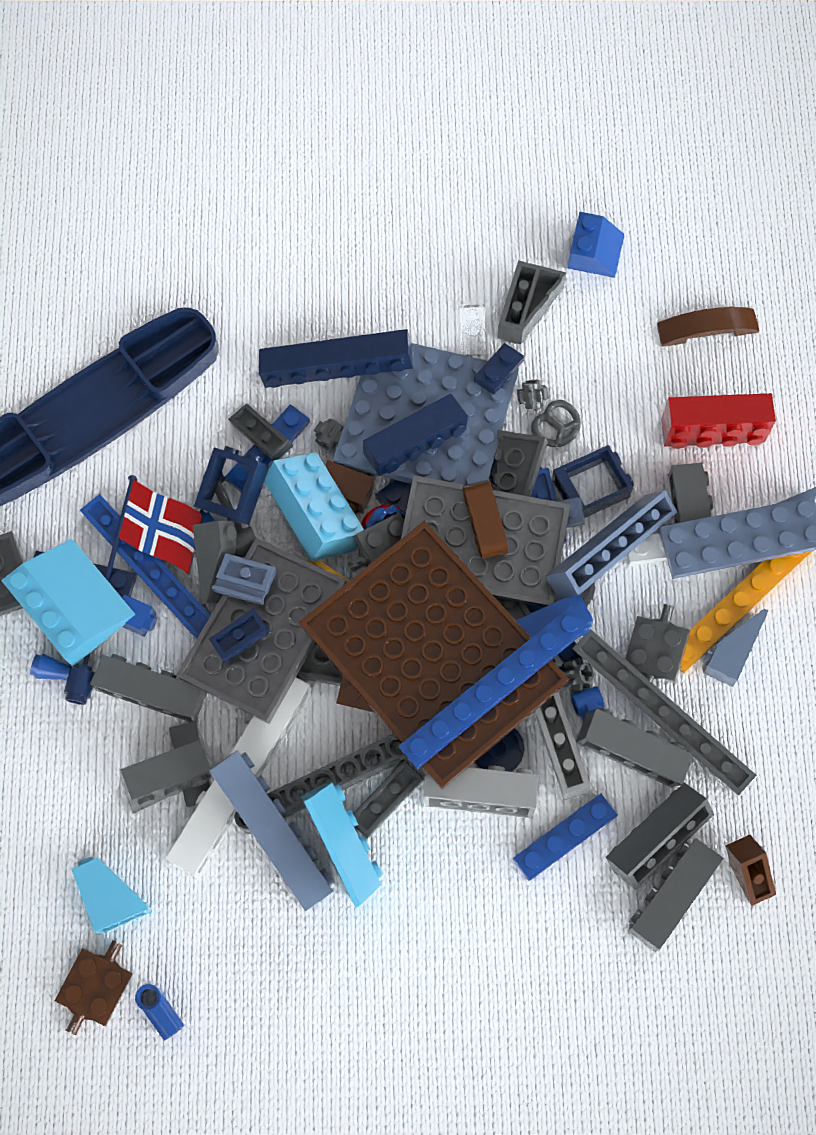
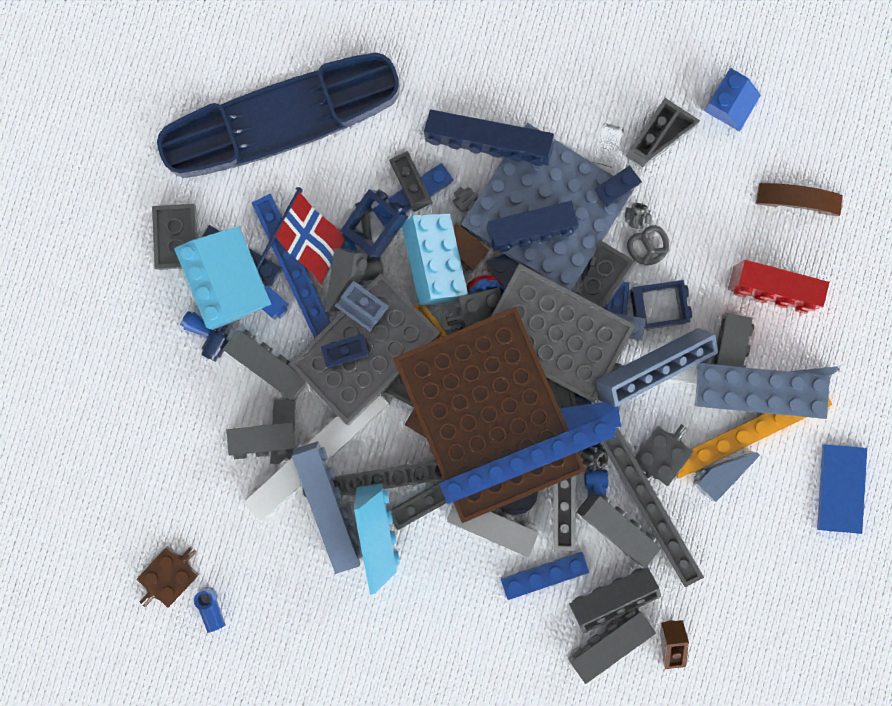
camera: 15 degrees right, 15 degrees up
(107, 896) = (194, 514): medium azure slope -> none
(485, 519) = (564, 319): reddish brown beam -> none

